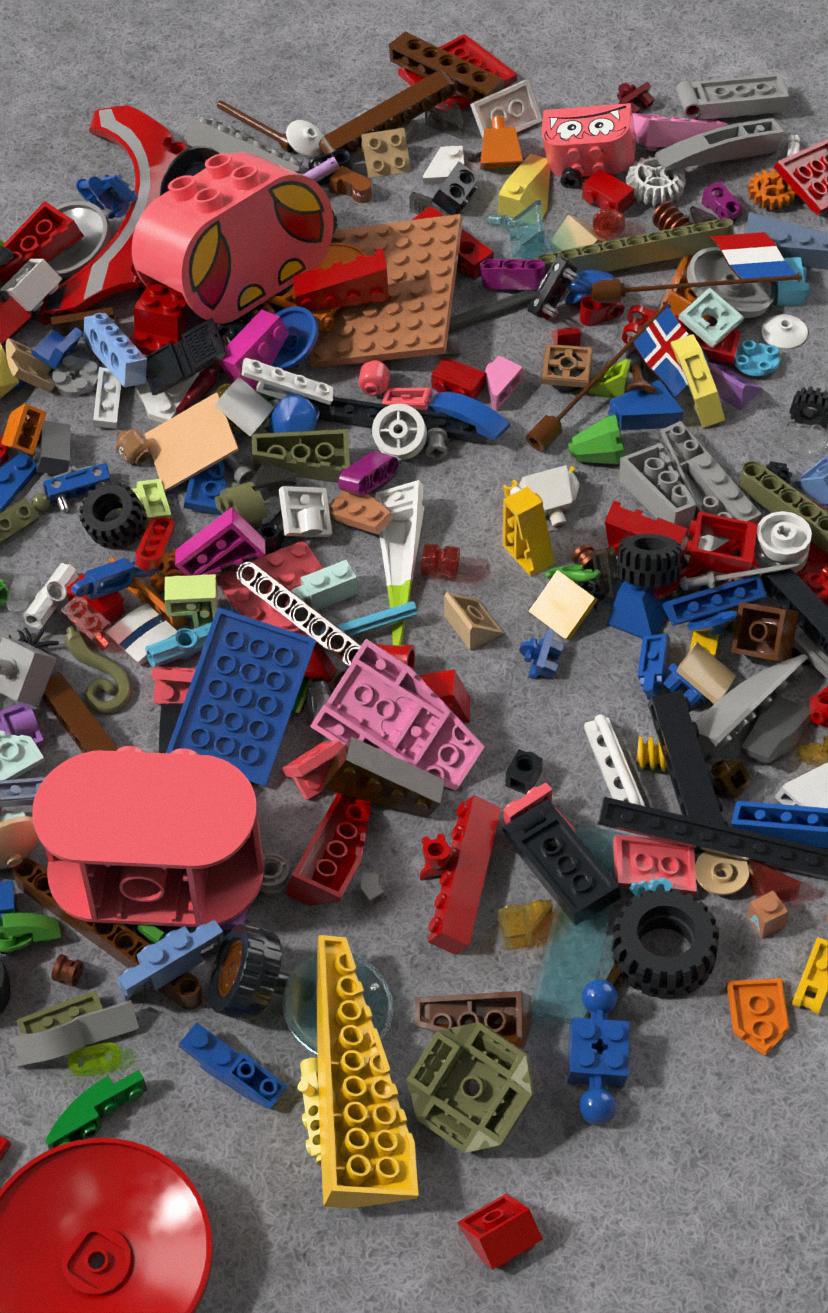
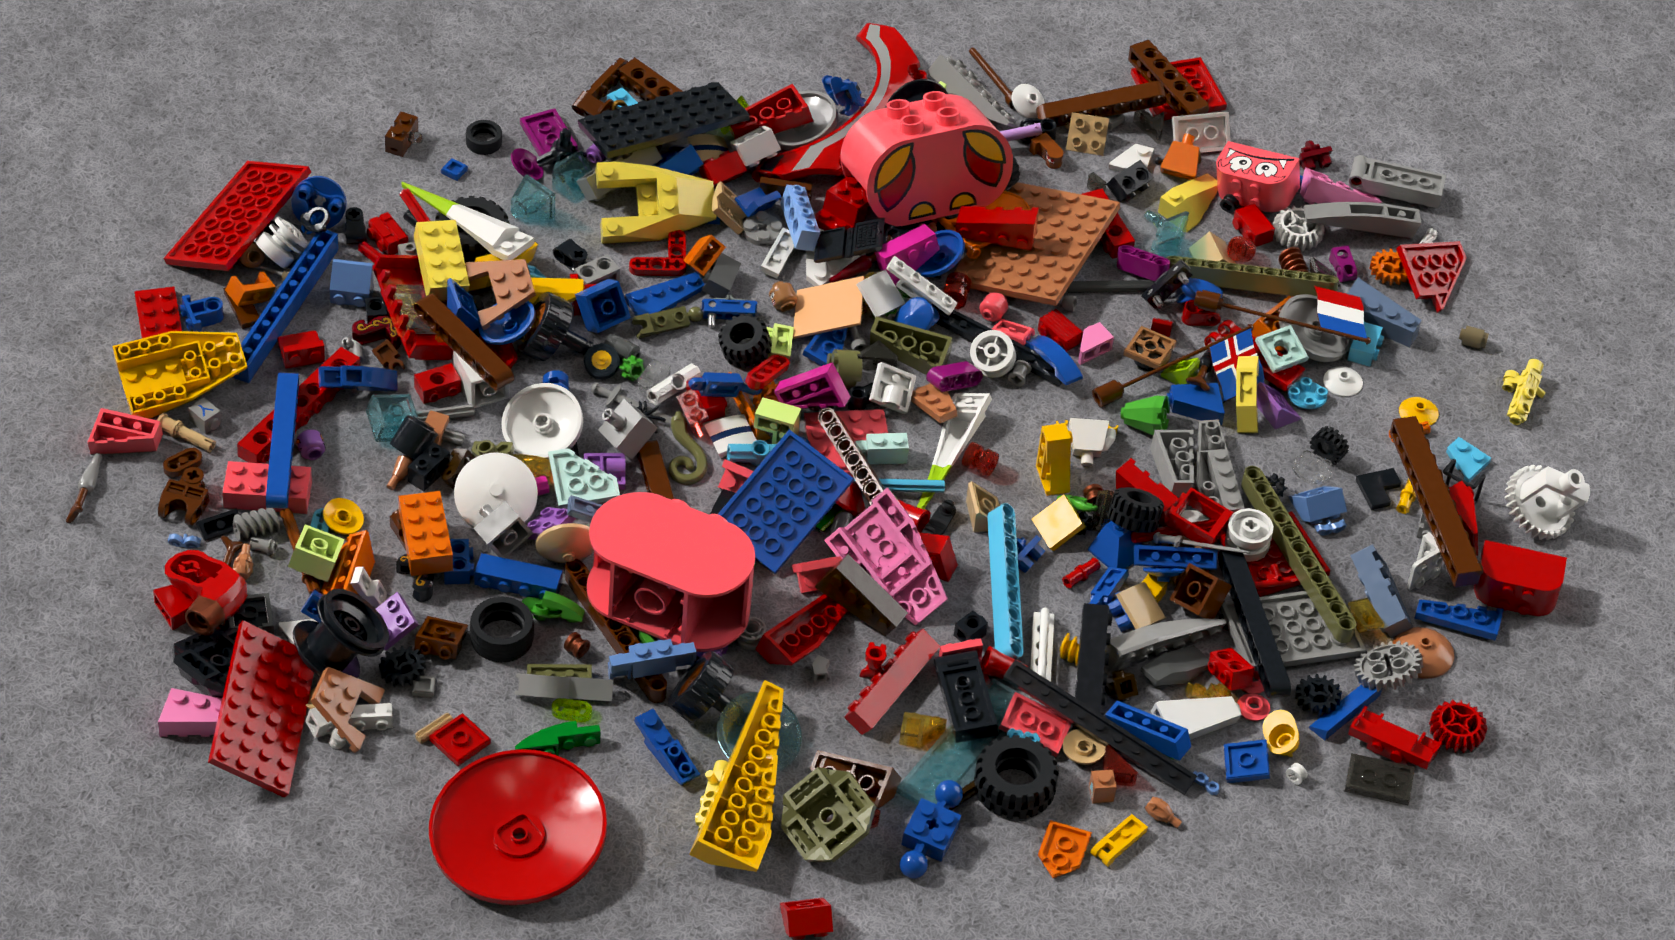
camera: 15 degrees right, 5 degrees down
(324, 369) = (958, 287): none -> clear red wheel
(427, 649) = (941, 518): none -> black piece
(540, 704) = (1005, 581): none -> medium azure beam
(579, 805) = (995, 663): none -> red plant
(615, 655) = (1081, 573): none -> red pin

